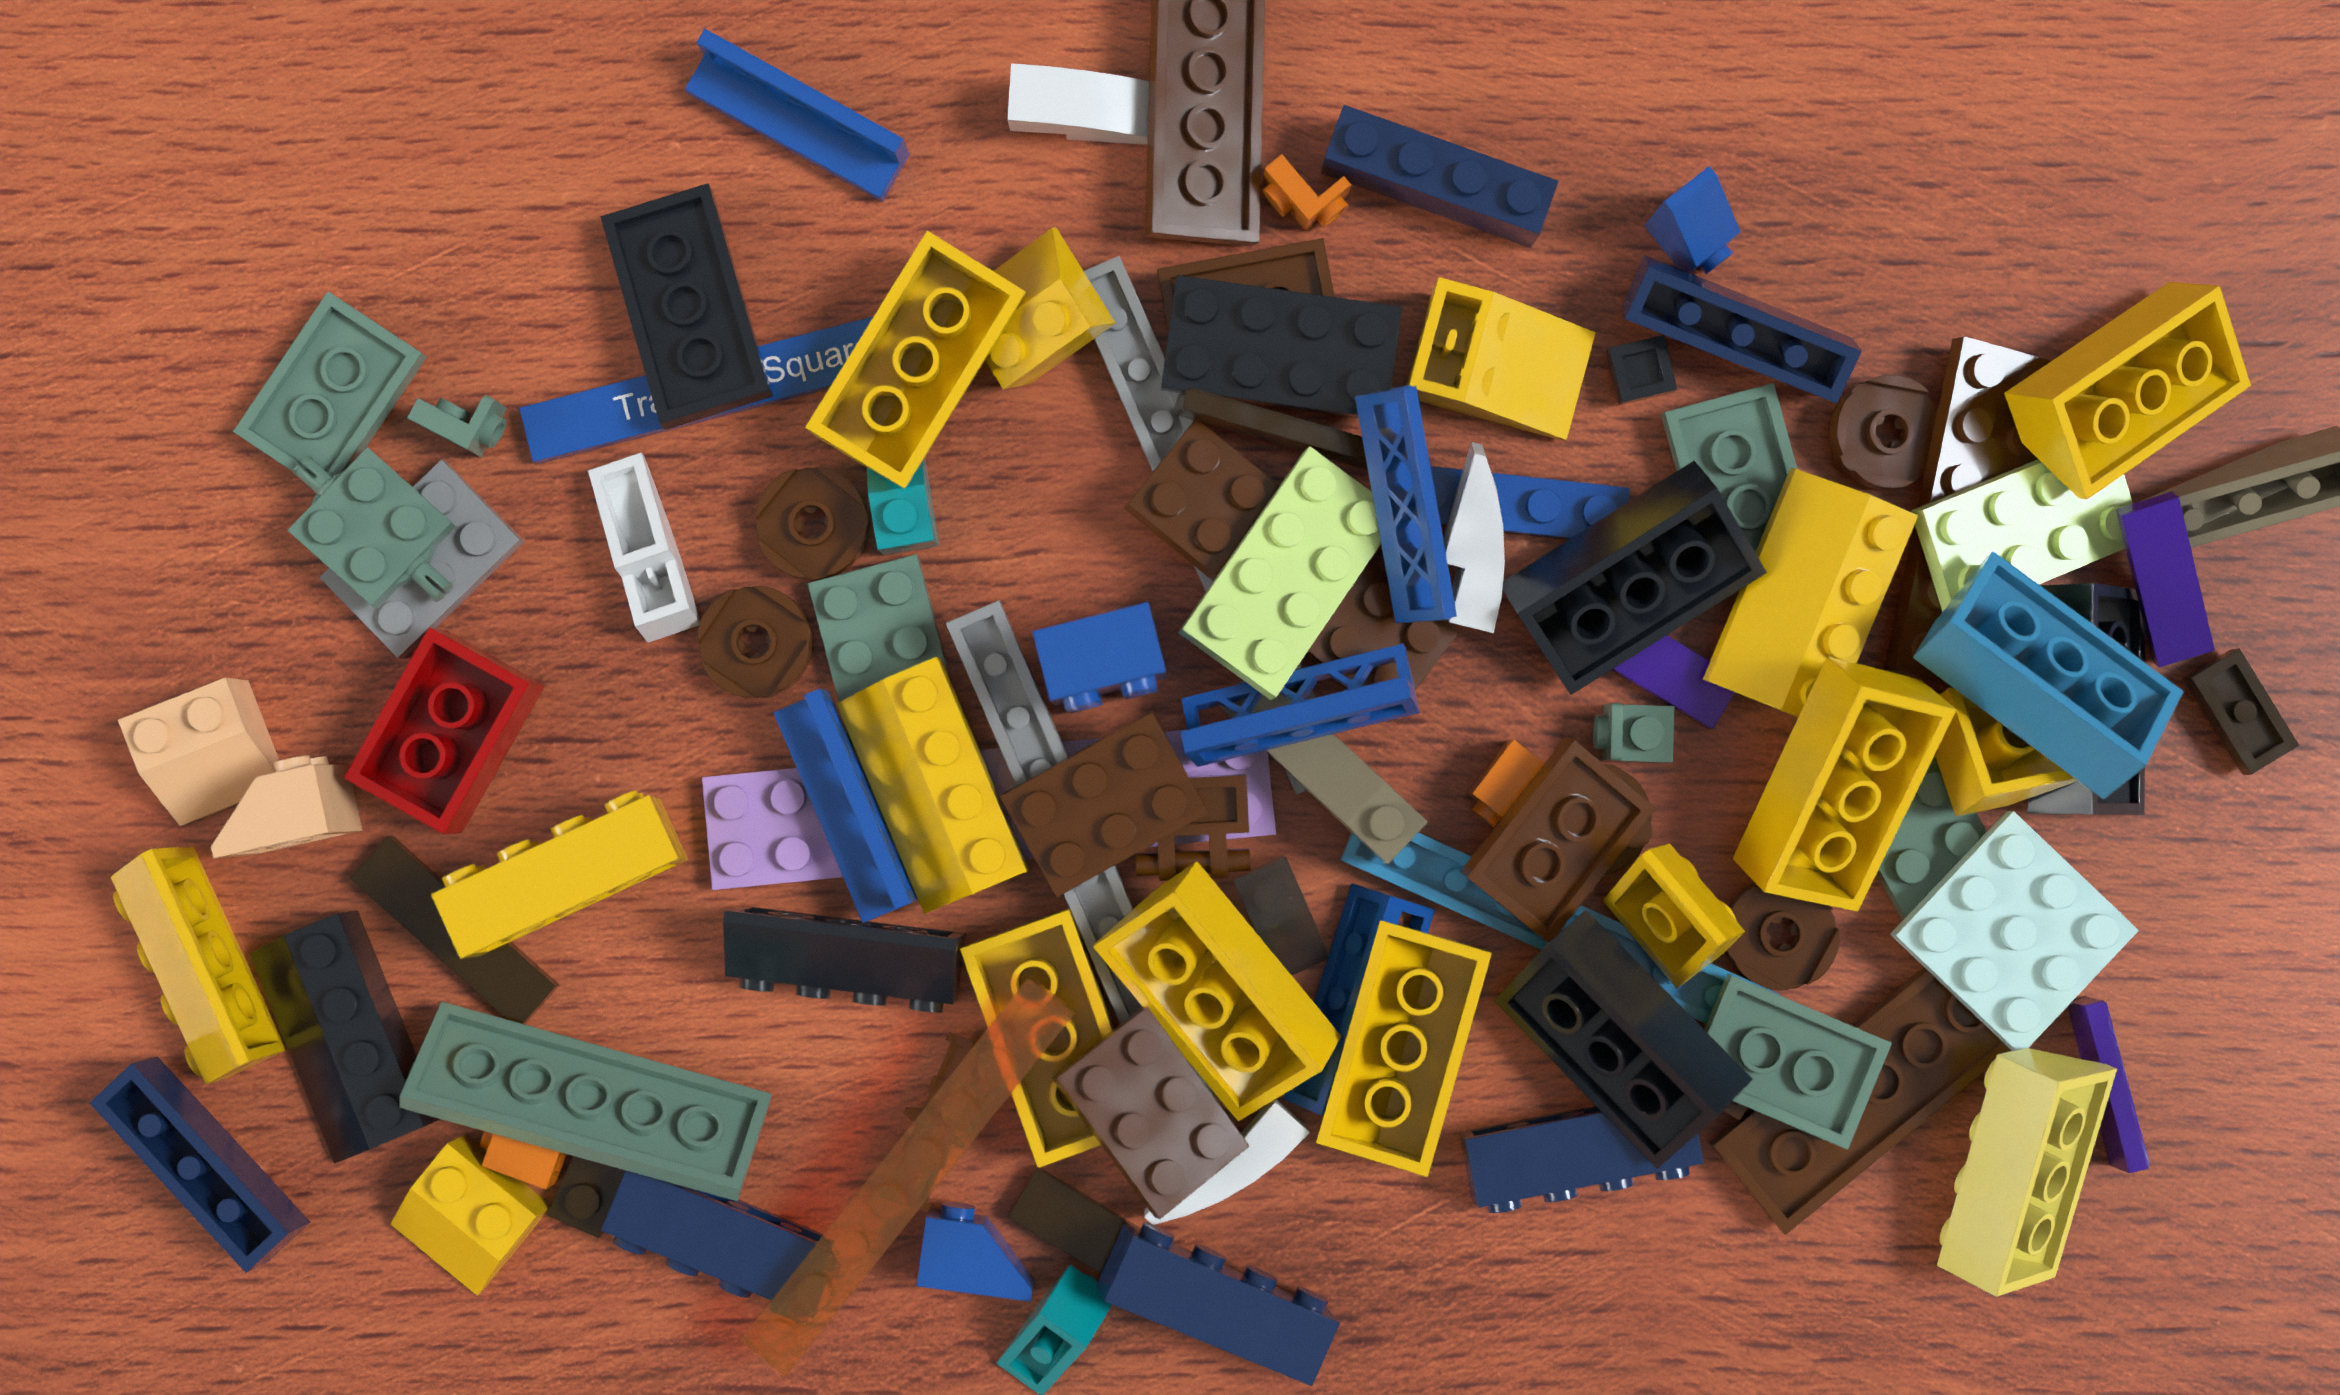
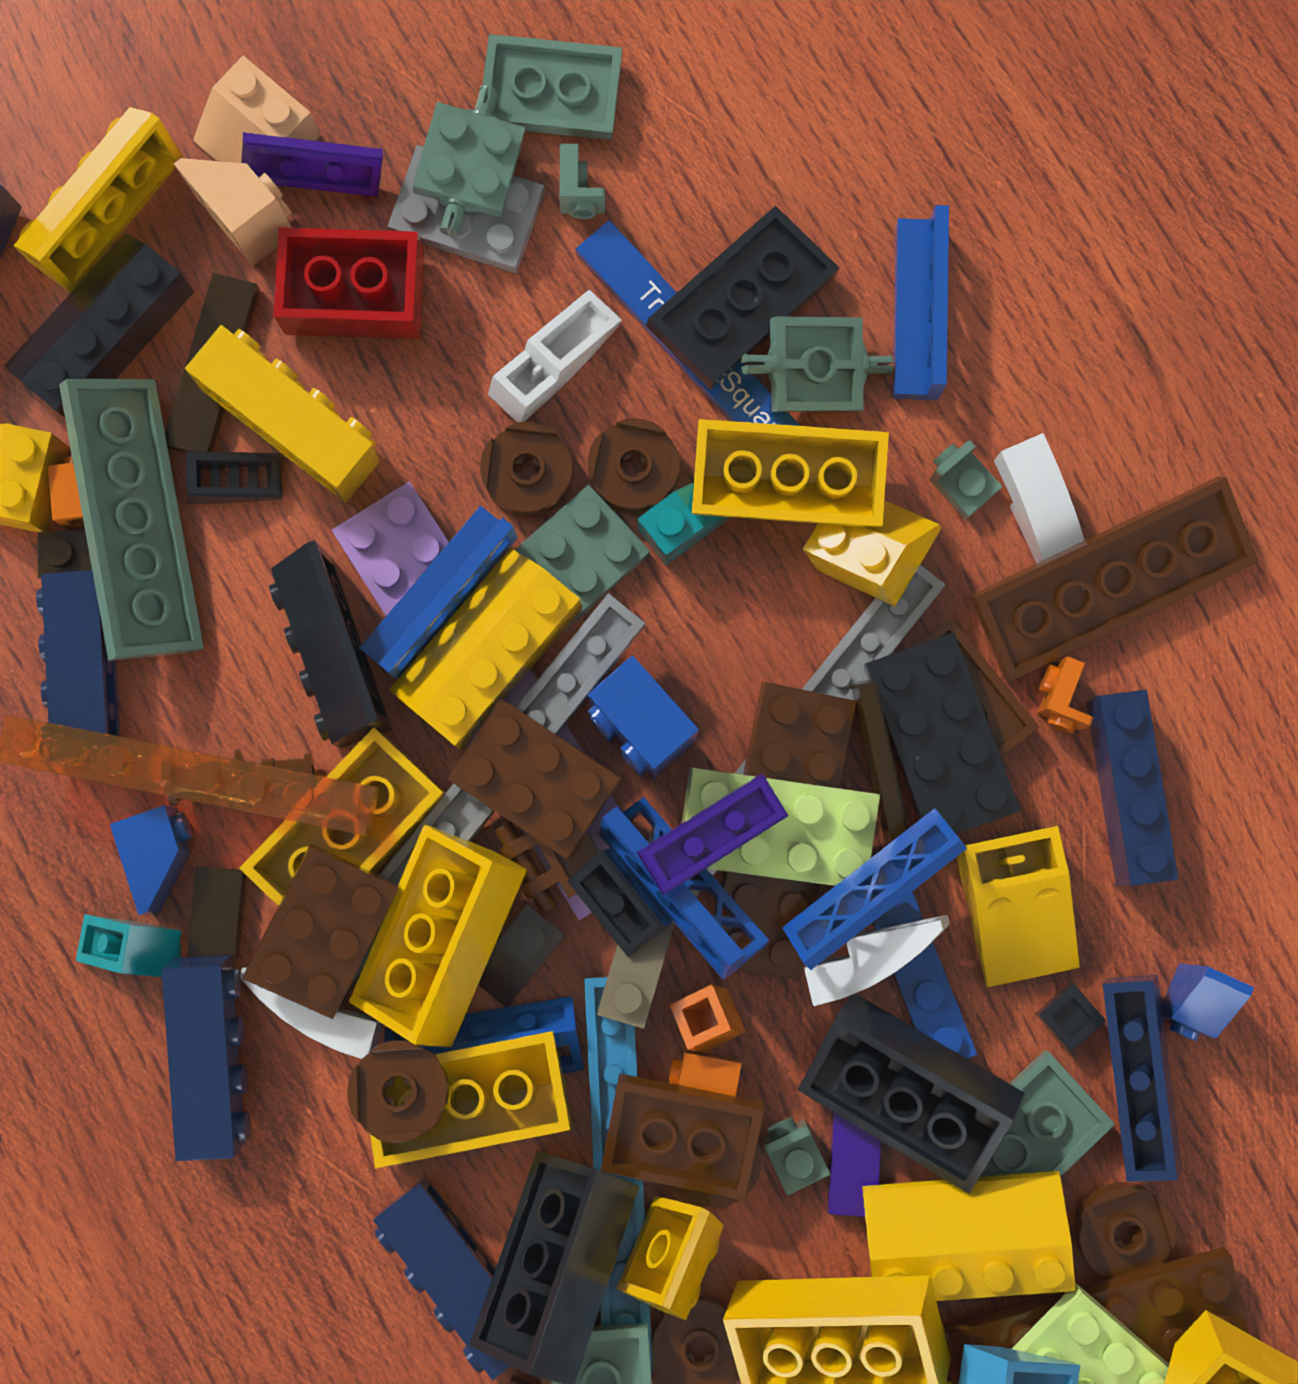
camera: 65 degrees right, 5 degrees down
(285, 704) = (314, 164): none -> dark purple tile
(604, 999) = (233, 460): none -> black slope
(805, 265) = (816, 364): none -> sand green plate
(1014, 173) = (963, 479): none -> sand green bracket
(1263, 645) = (712, 834): none -> dark purple tile
(1281, 779) = (619, 901): none -> black slope
(1329, 1122) = (420, 1110): none -> reddish brown plate
(1449, 750) = (707, 1018): none -> orange brick

